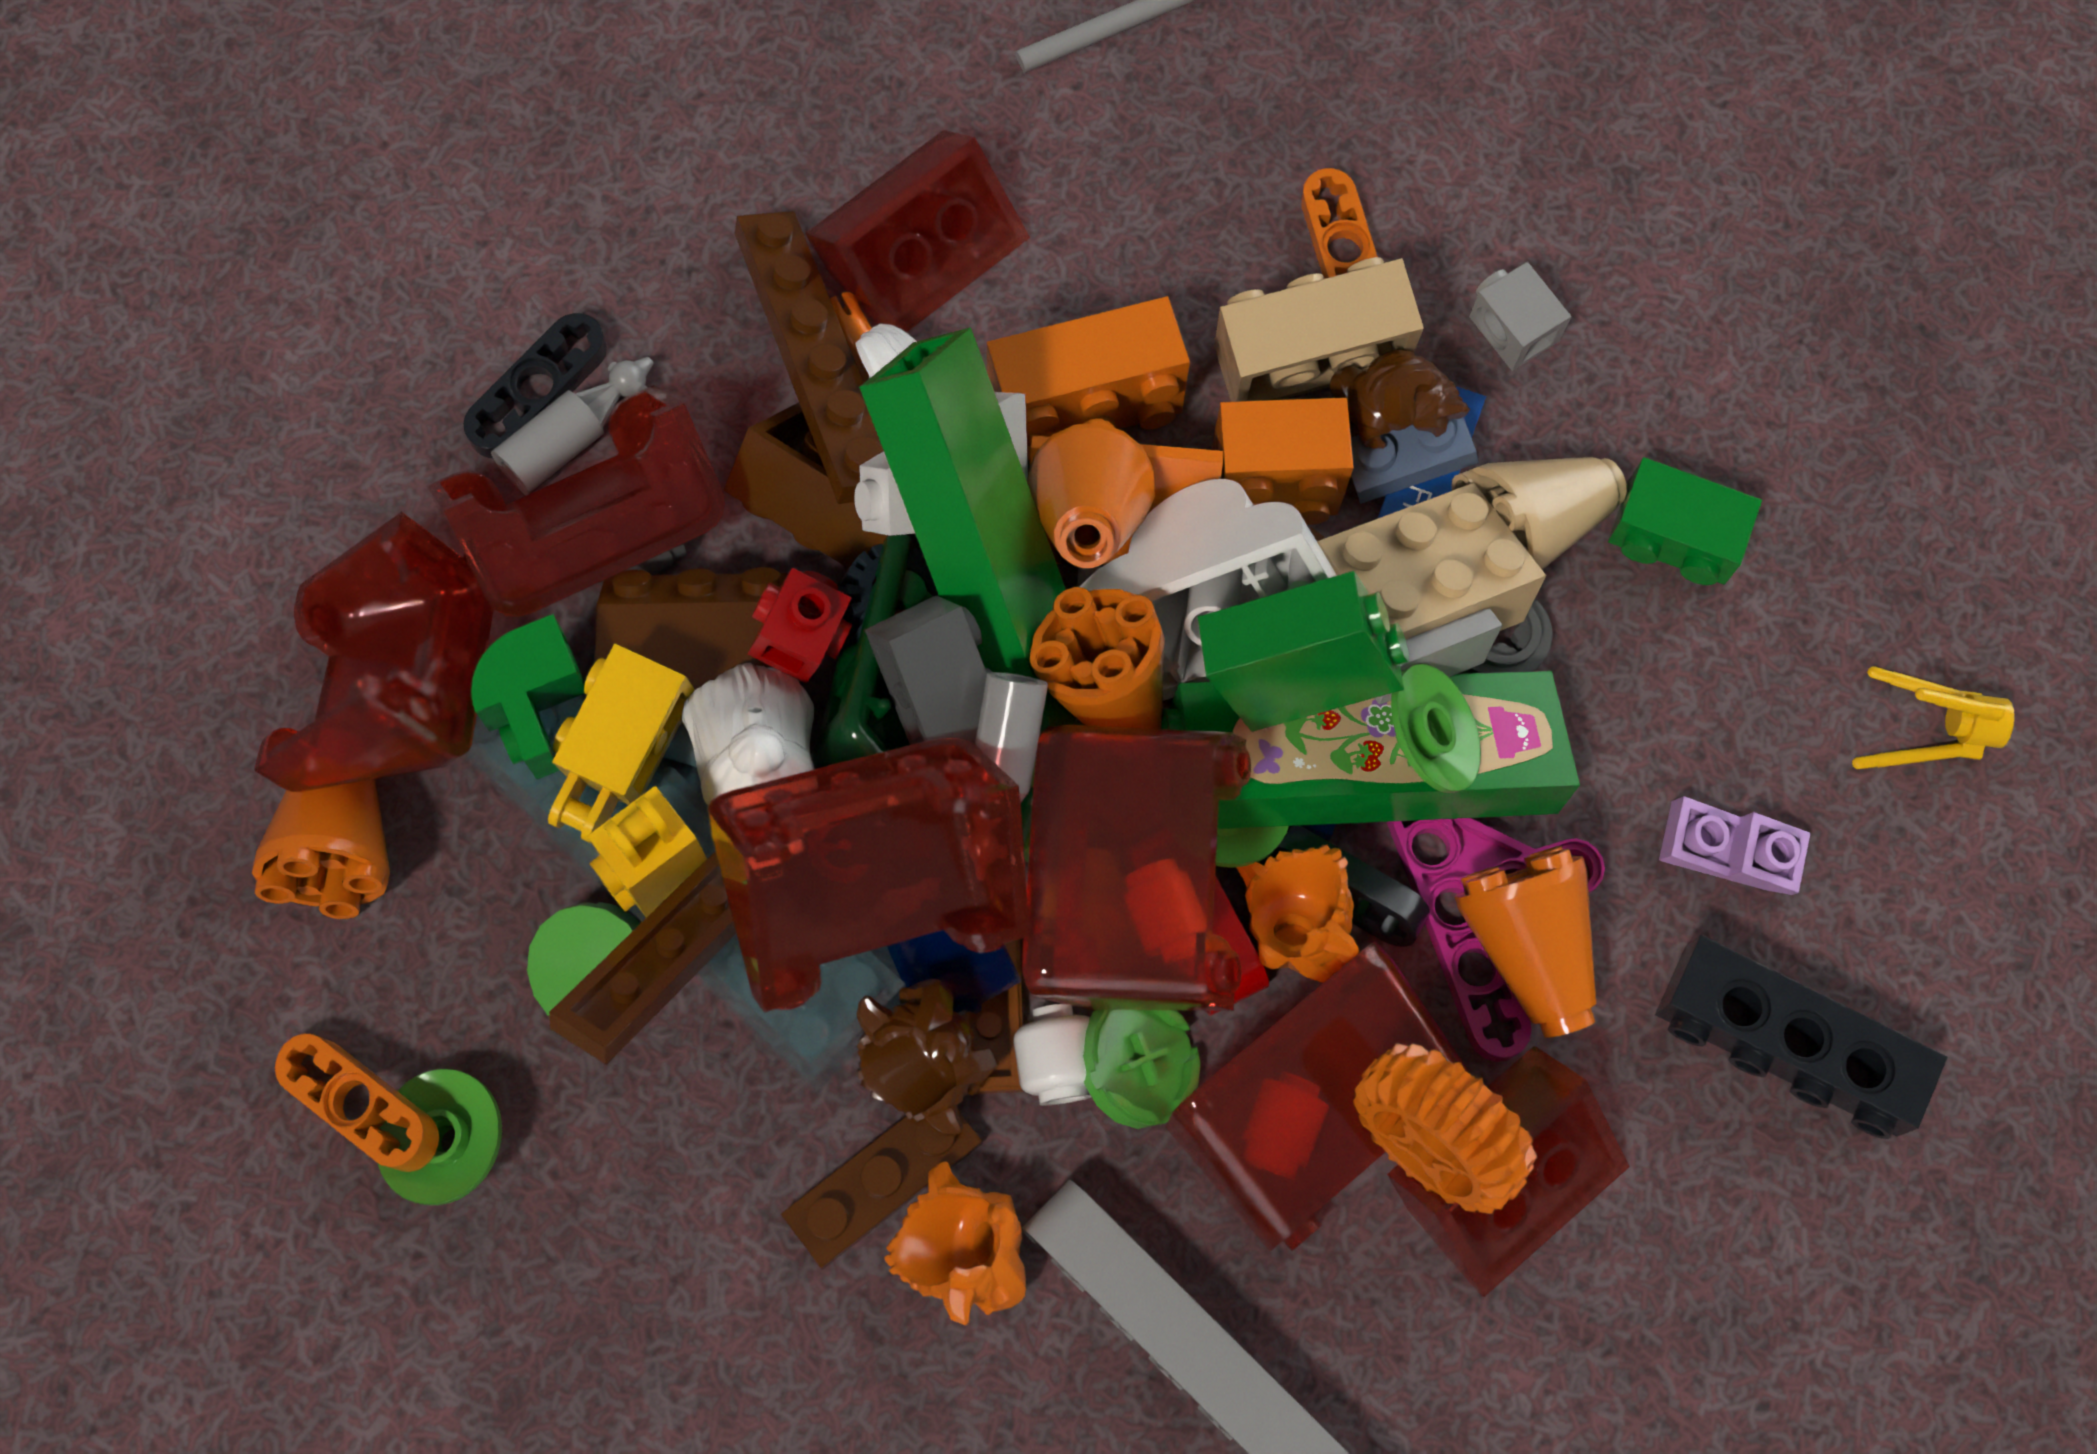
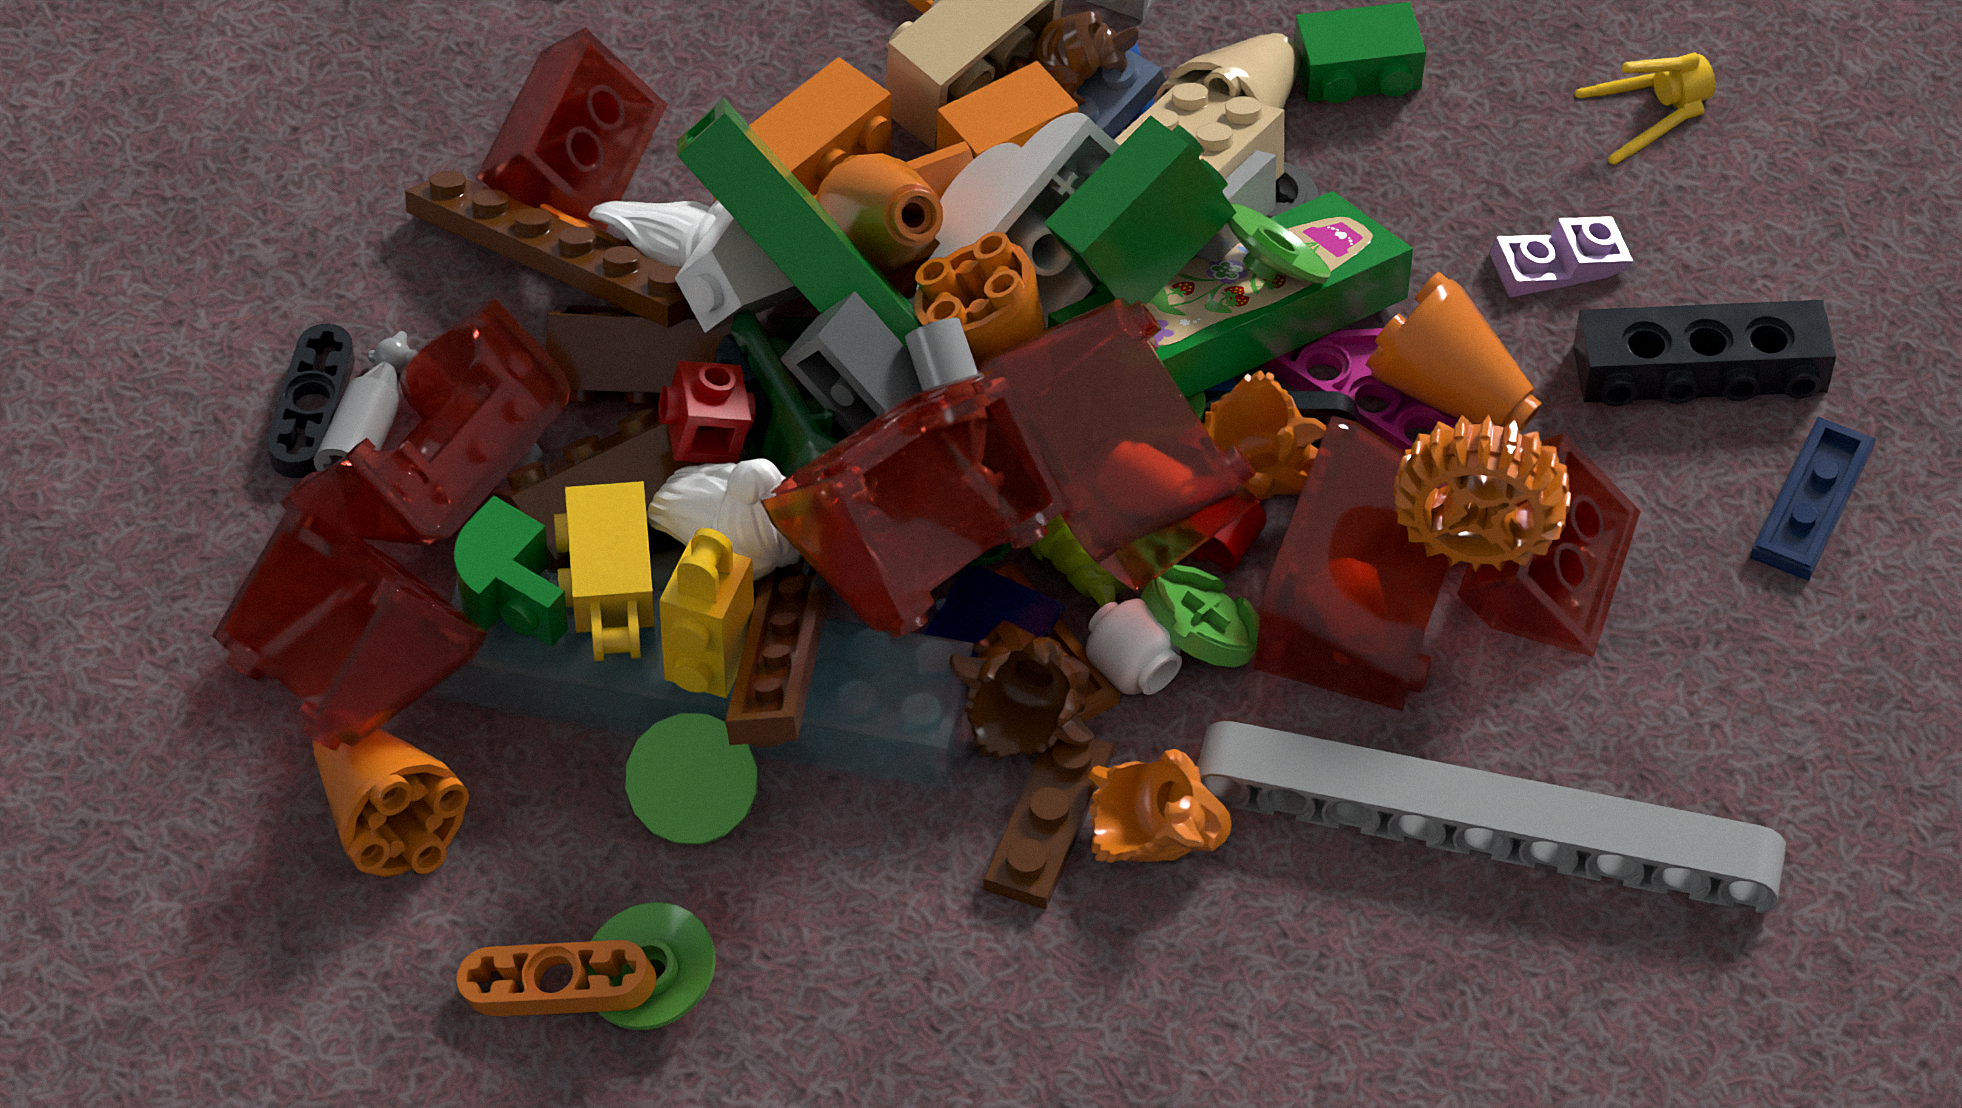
camera: 30 degrees left, 20 degrees down
(1804, 1250) = (1813, 498): none -> dark blue tile

